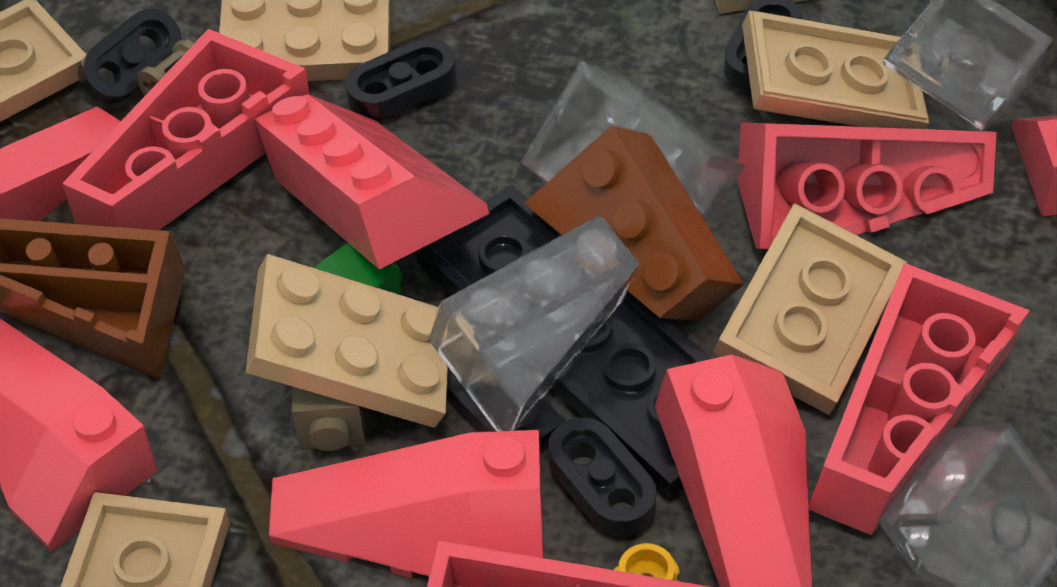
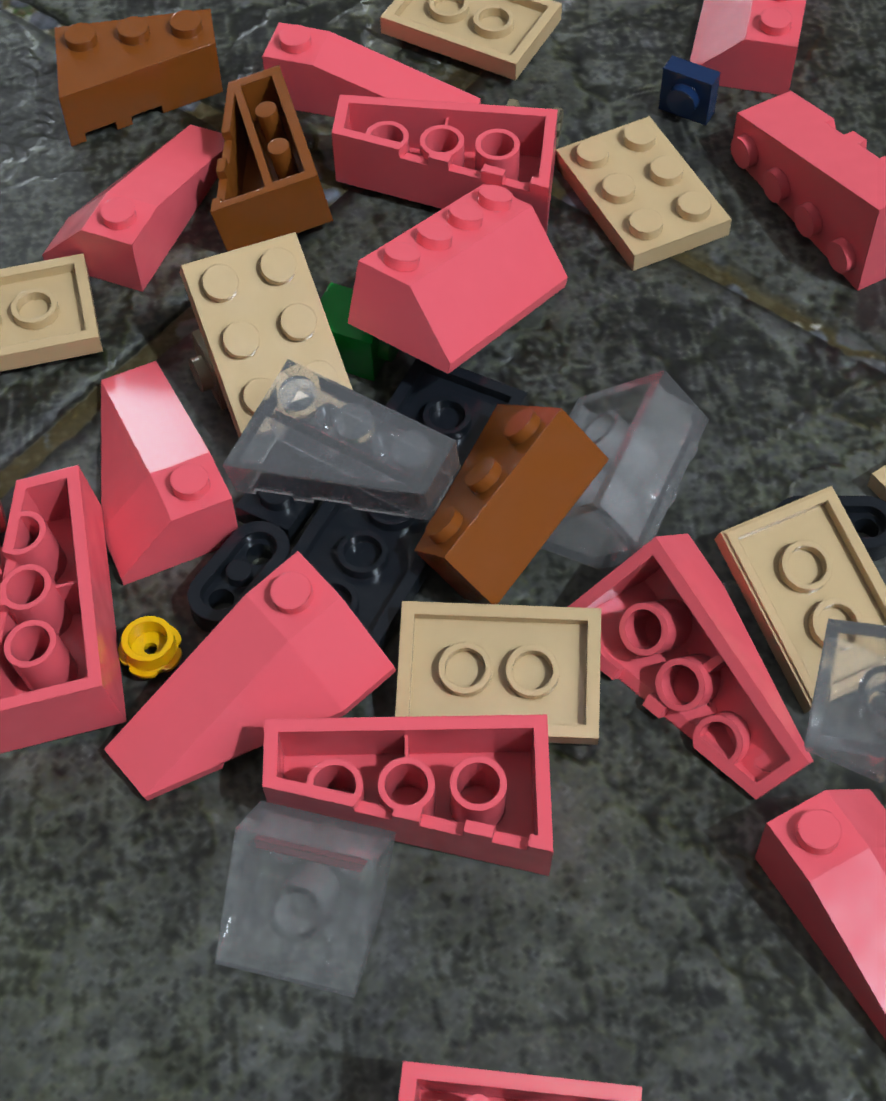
camera: 65 degrees right, 5 degrees up
(126, 56) = (538, 85): black plate -> none
(401, 78) = (623, 272): black plate -> none

